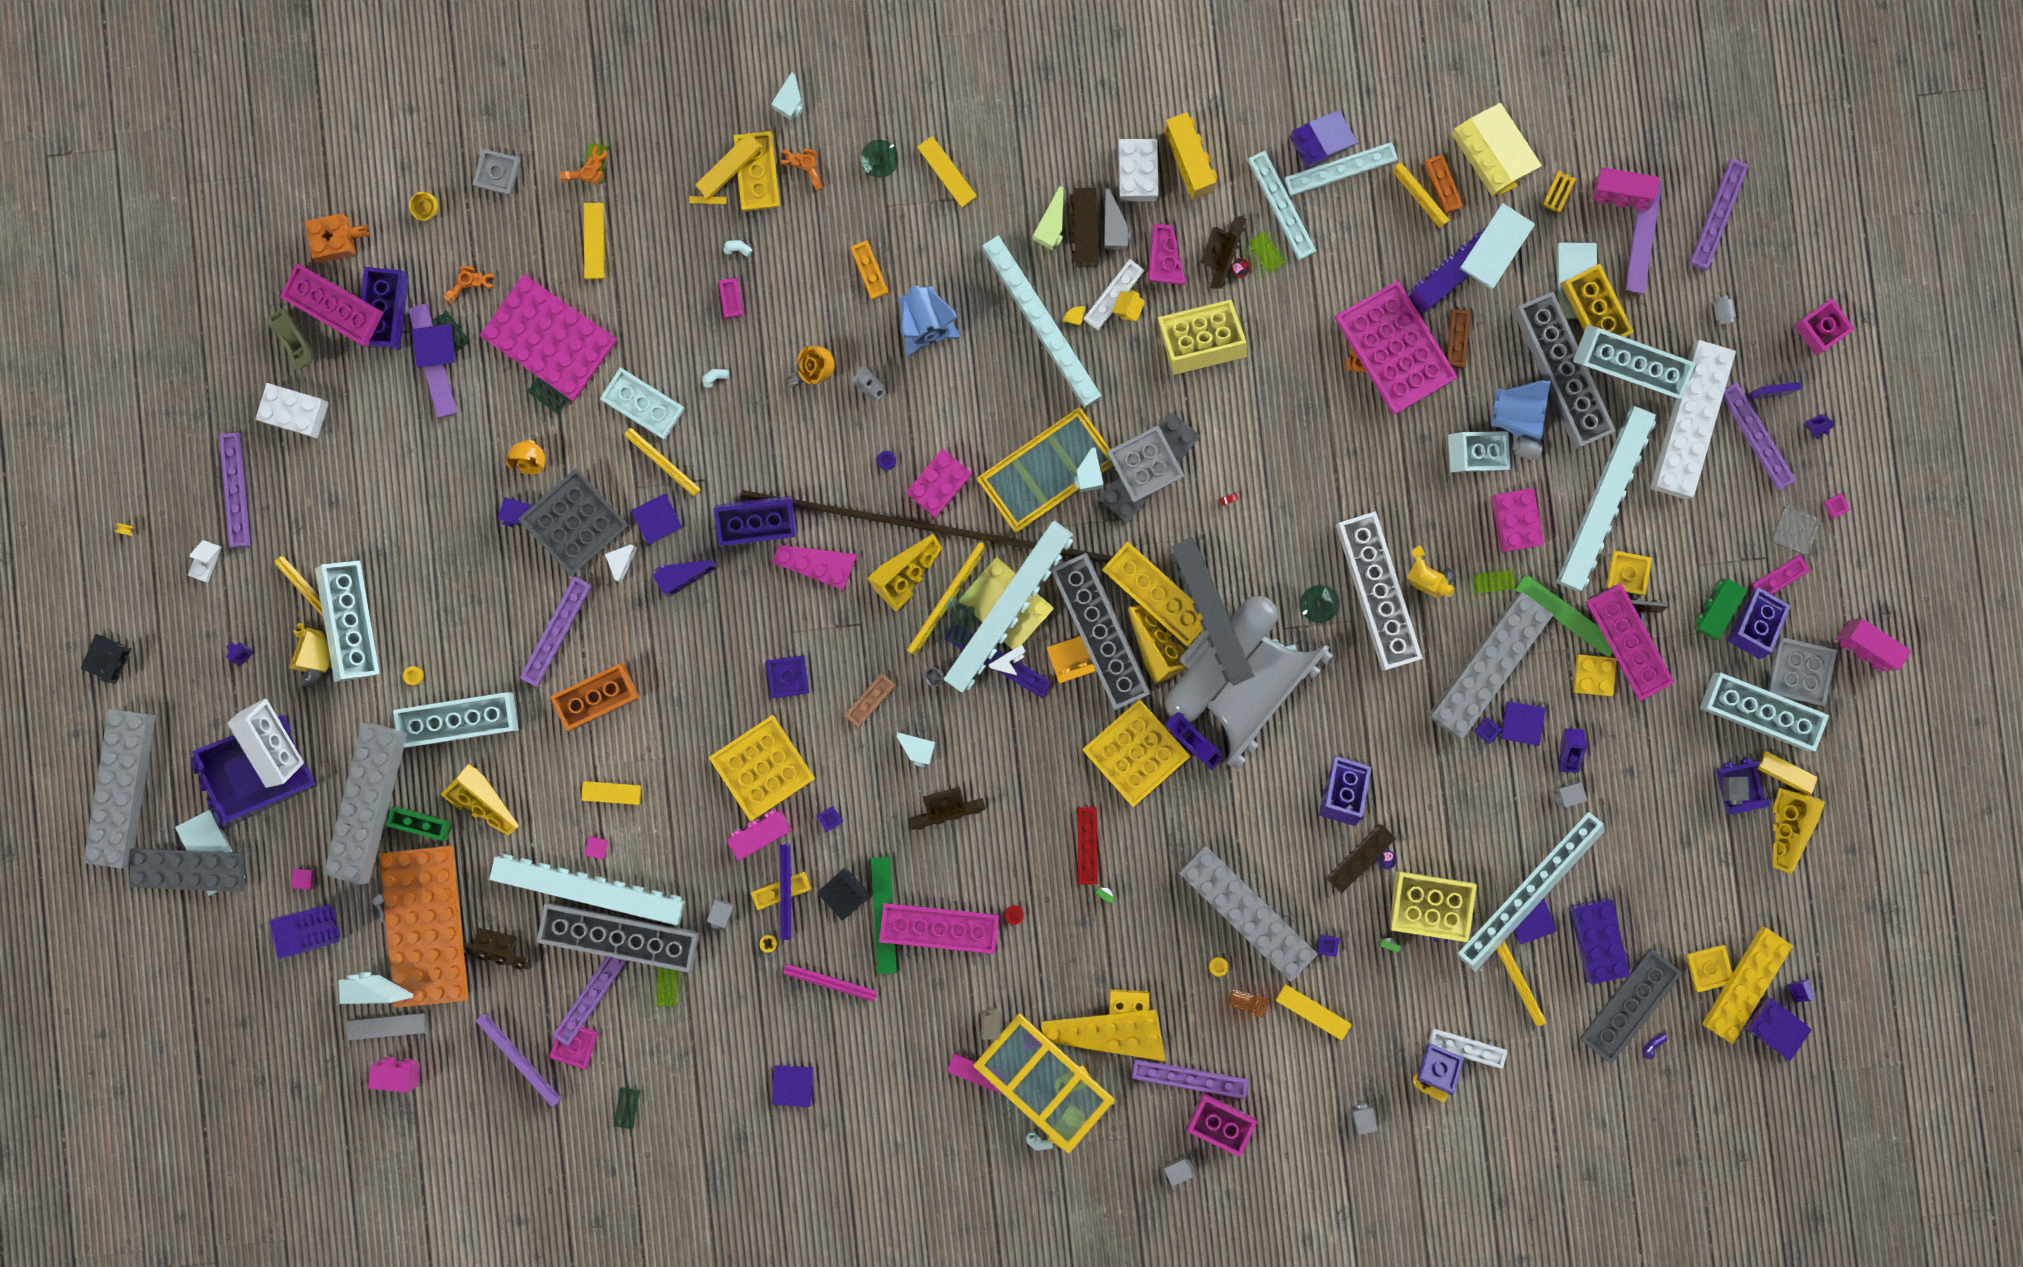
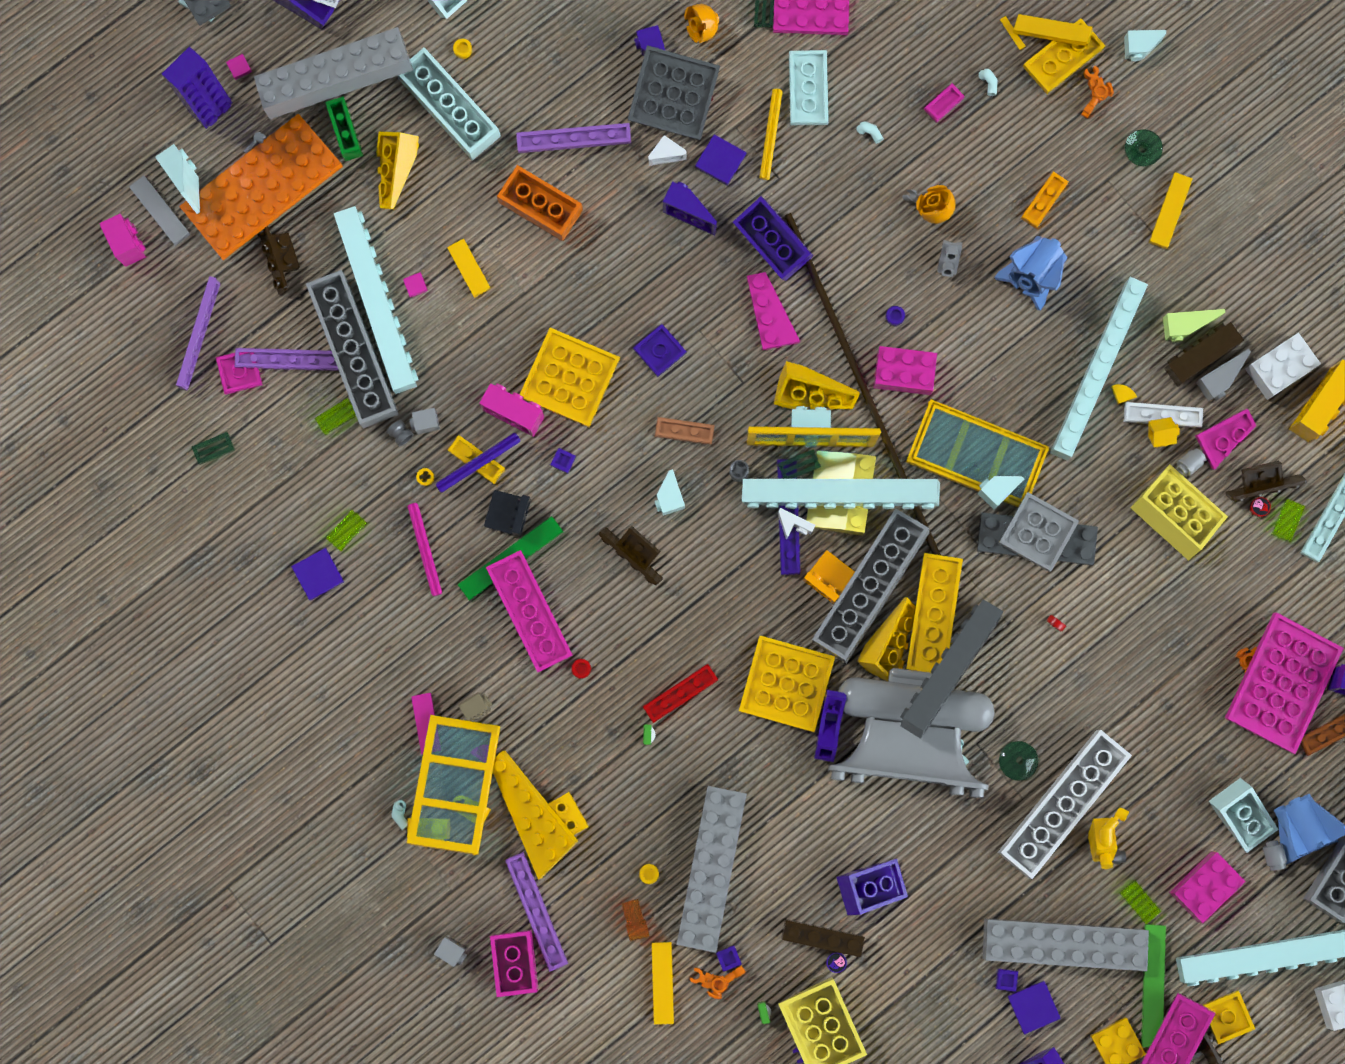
camera: 60 degrees right, 5 degrees down
(716, 941) = (399, 432): none -> flat silver wheel
(771, 1038) = (346, 530): none -> clear neon green tile
(931, 590) = (811, 418): none -> light aqua brick
(1168, 299) = (1191, 462): none -> light grey brick
(1342, 967) = (716, 983): none -> orange piece

